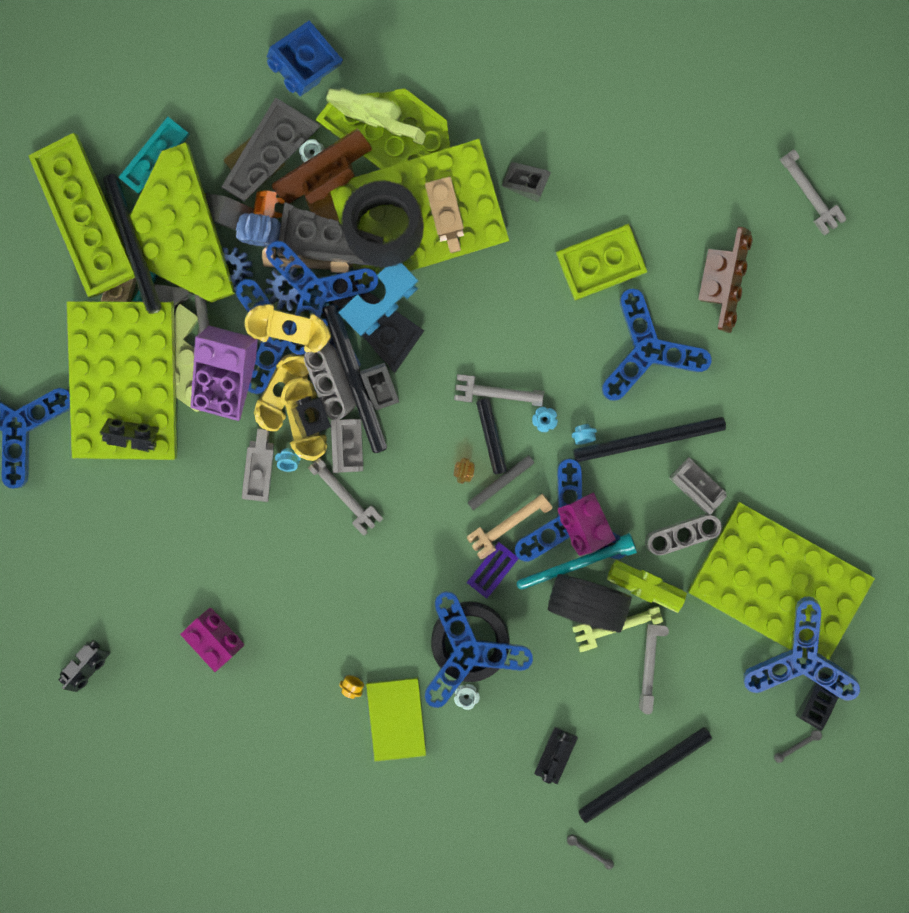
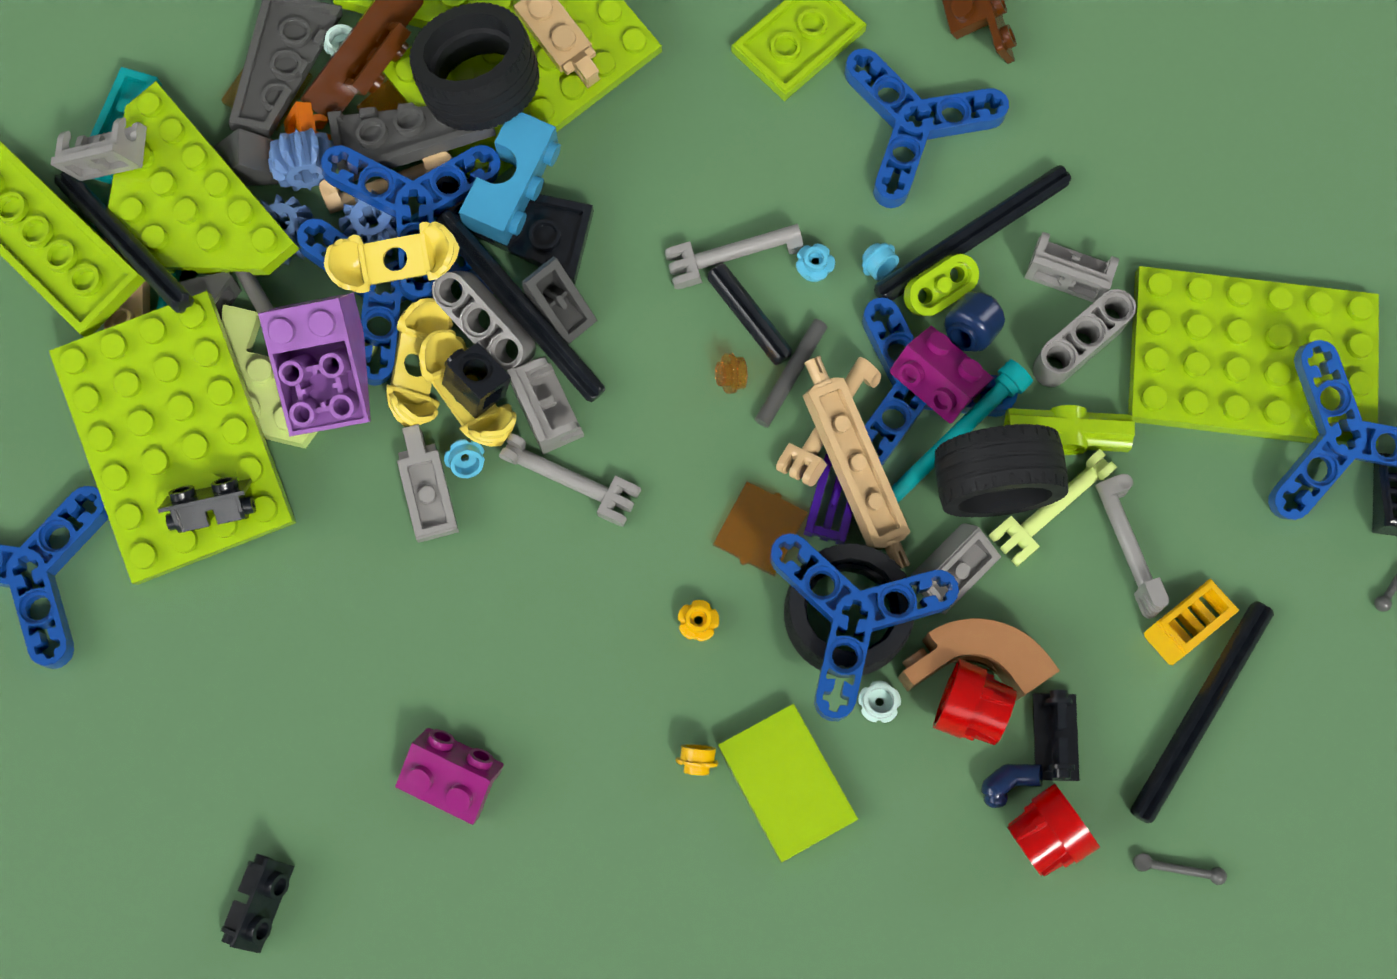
camera: 25 degrees left, 15 degrees down
(137, 179) = (101, 153): none -> light grey hinge
(388, 603) = (695, 631): none -> yellow plate
(442, 568) = (756, 524): none -> clear orange piece
(511, 559) = (856, 462): none -> tan plate
(516, 723) = (974, 704): none -> red piece
(516, 767) = (1007, 777): none -> dark blue arm
(527, 808) = (1052, 832): none -> red piece
(538, 688) = (996, 645): none -> medium nougat arch
(545, 636) = (965, 555): none -> light grey slope
(613, 466) = (938, 285): none -> lime plate
(622, 498) = (974, 321): none -> dark blue head
(643, 730) = (1172, 640): none -> yellow slope

